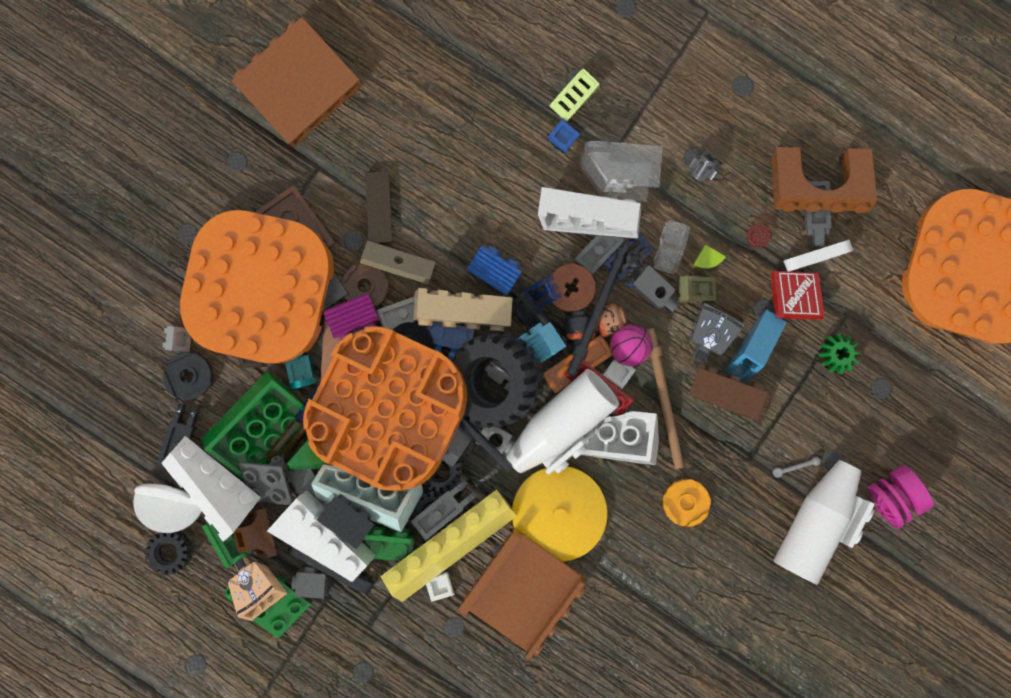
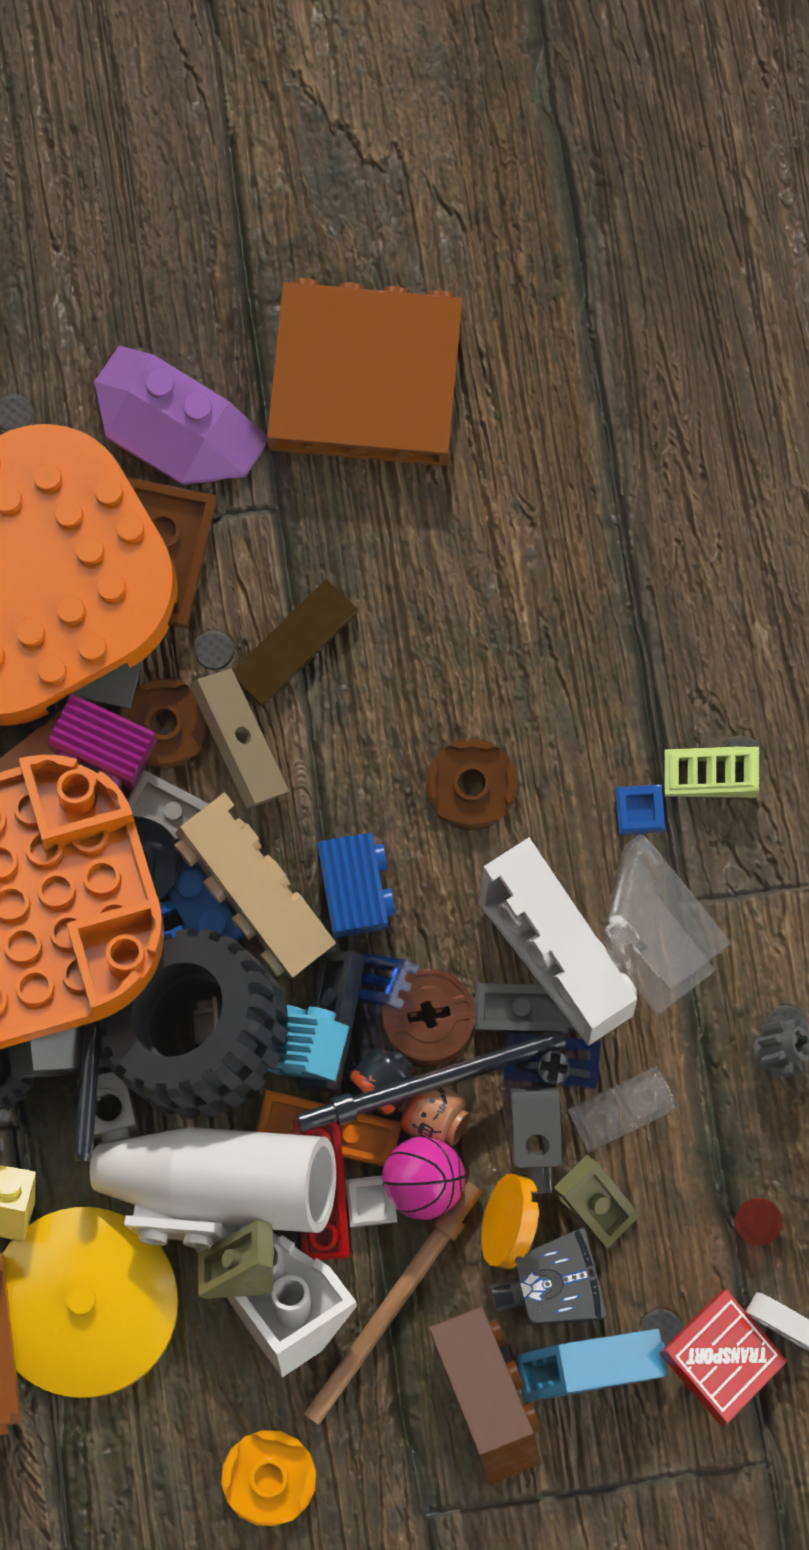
camera: 45 degrees right, 10 degrees down
(247, 173) = (174, 420): none -> medium lavender wedge
(490, 177) = (471, 757): none -> reddish brown tile
(602, 445) = (238, 1264): none -> olive slope
(676, 328) = (509, 1221): none -> light orange tile
(708, 258) = (657, 1179): lime tile -> none
(830, 355) = (702, 1486): green gear -> none

